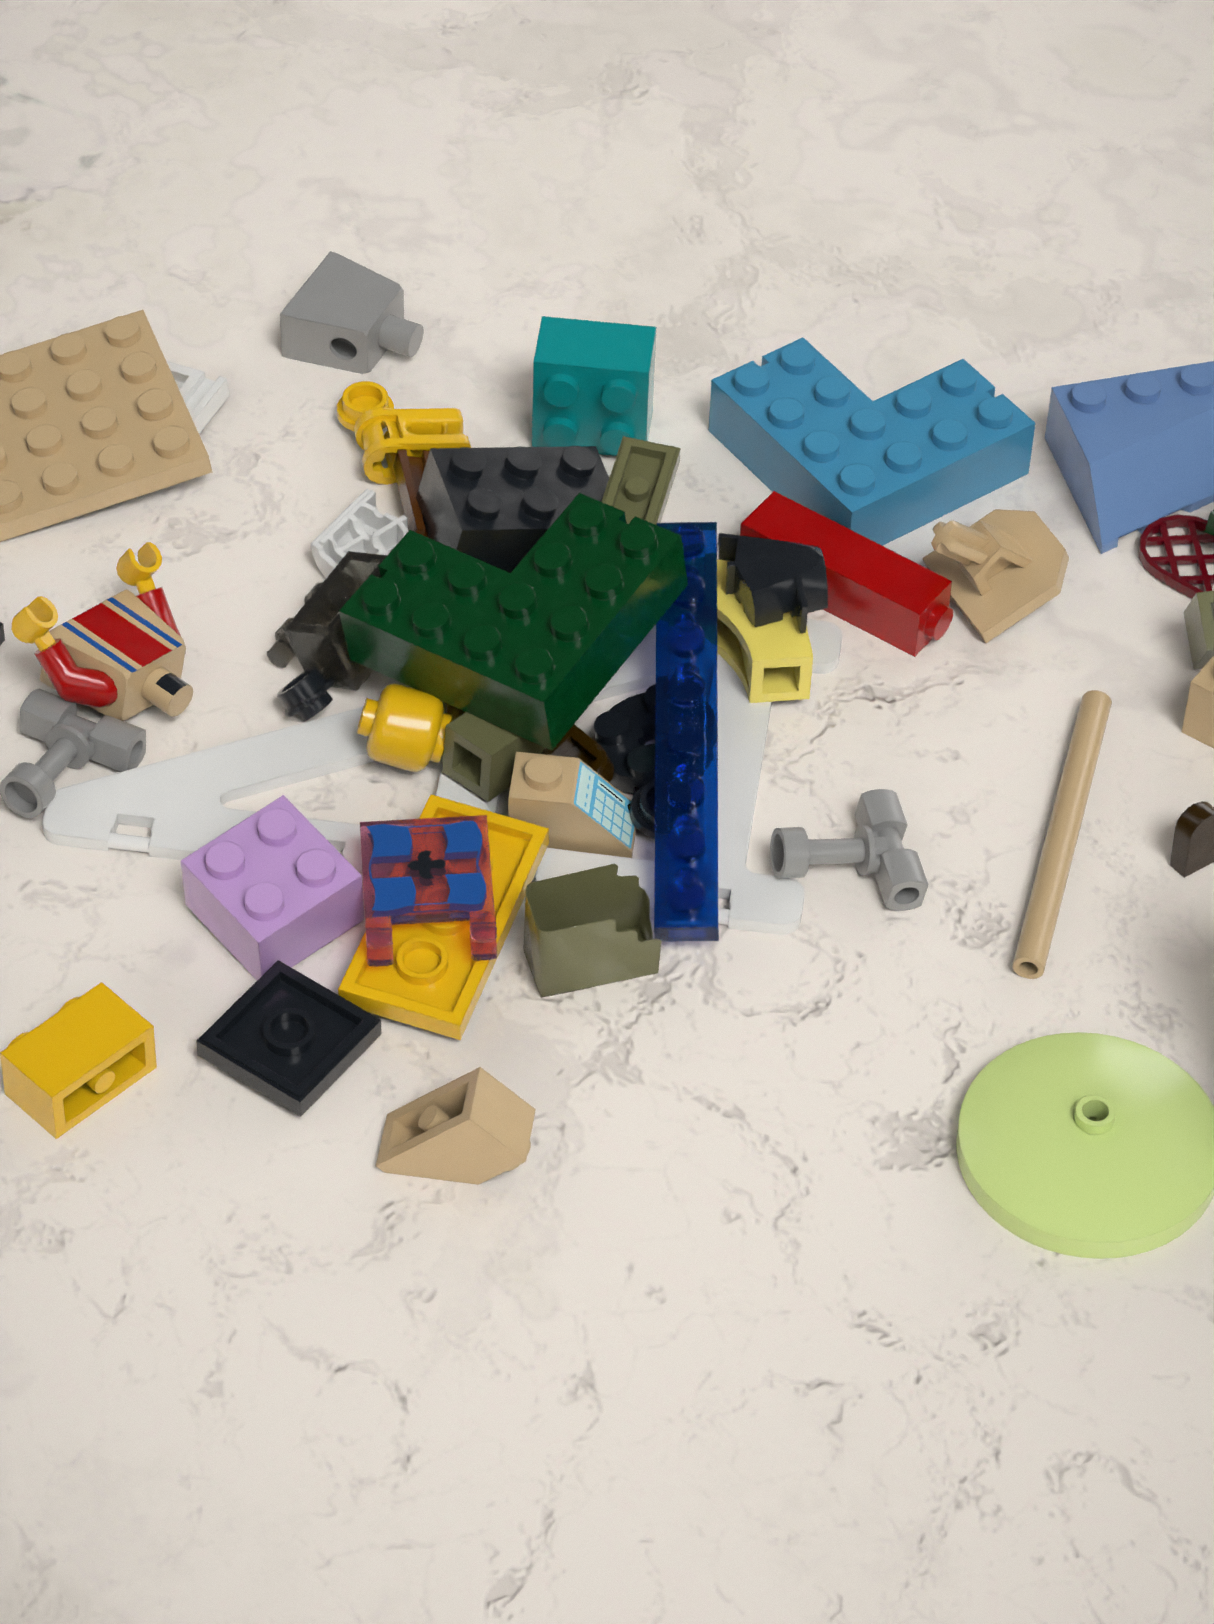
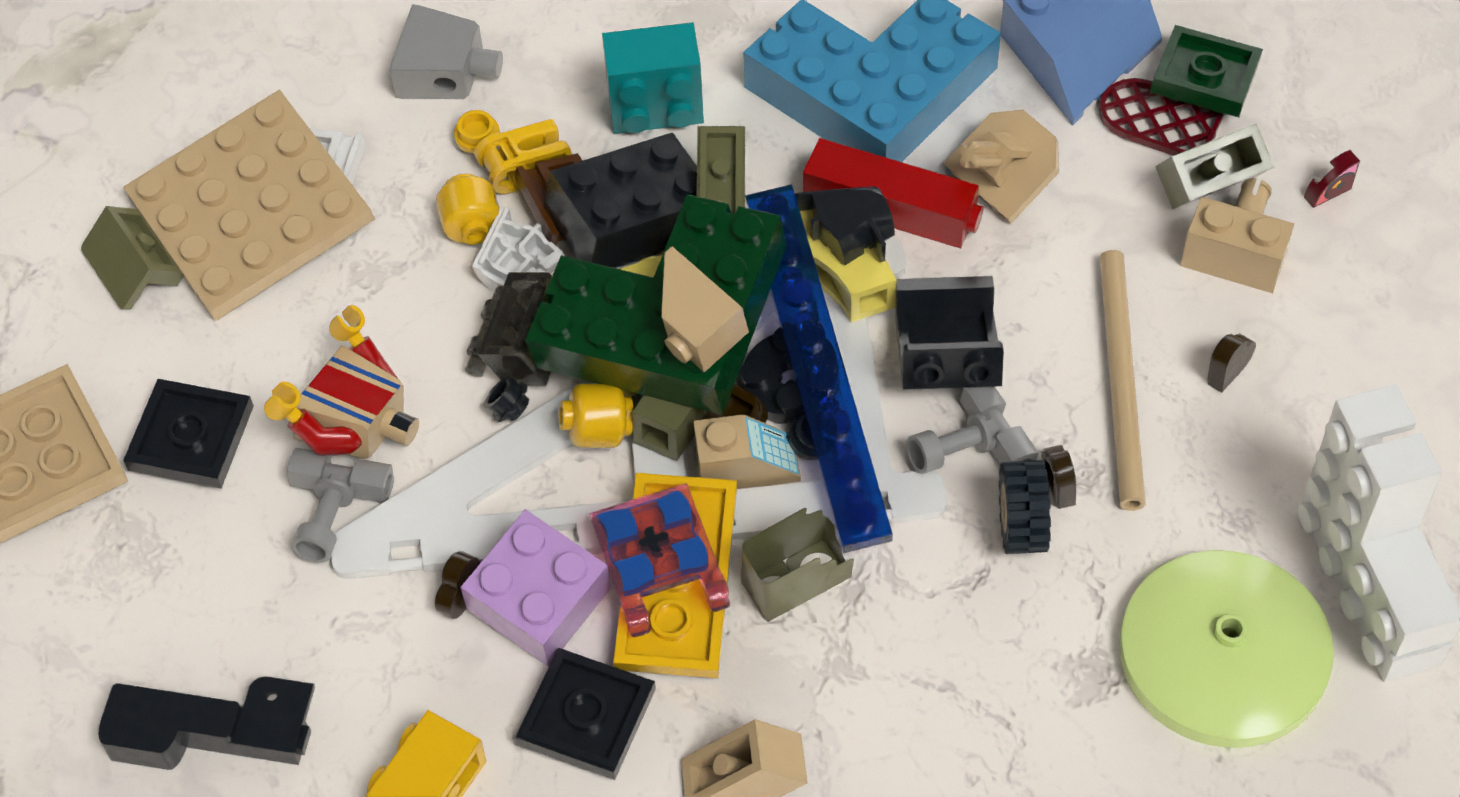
camera: 10 degrees left, 10 degrees up
(167, 880) = (456, 571): none -> dark brown tile
(324, 481) = (466, 208): none -> yellow head
(545, 612) = (698, 314): none -> tan slope
(860, 730) = (947, 333): none -> black panel
(887, 931) = (1024, 507): none -> black wheel
(947, 918) = (1060, 475): none -> dark brown tile

